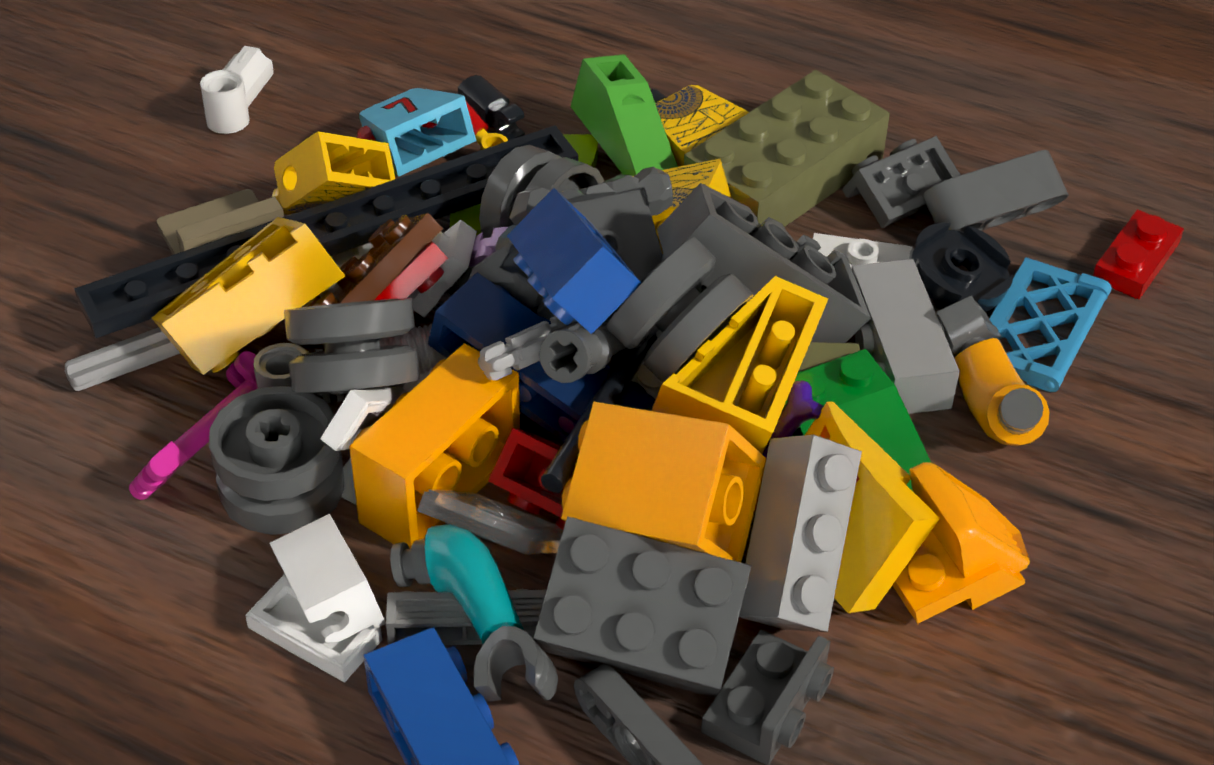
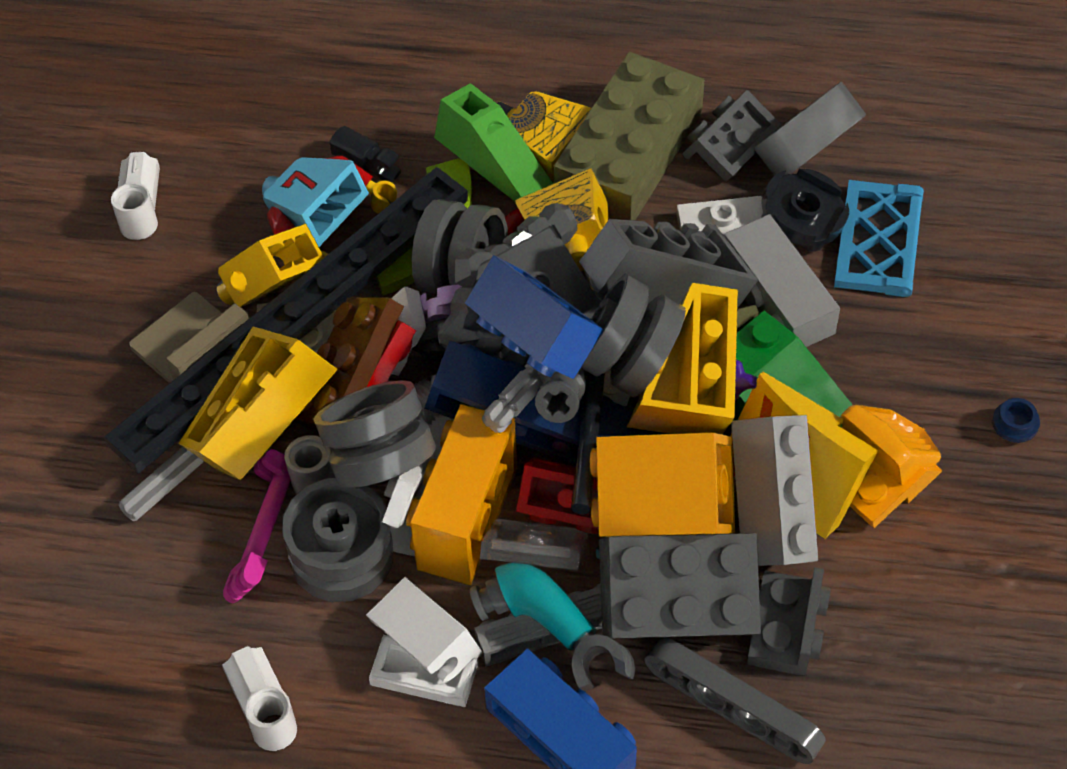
camera: 15 degrees left, 10 degrees up
(113, 602) = (261, 697): none -> white piece
(991, 386) = (862, 307): piece -> none
(1138, 253) = (933, 151): red plate -> none
(1140, 551) = (1016, 420): none -> dark blue plate

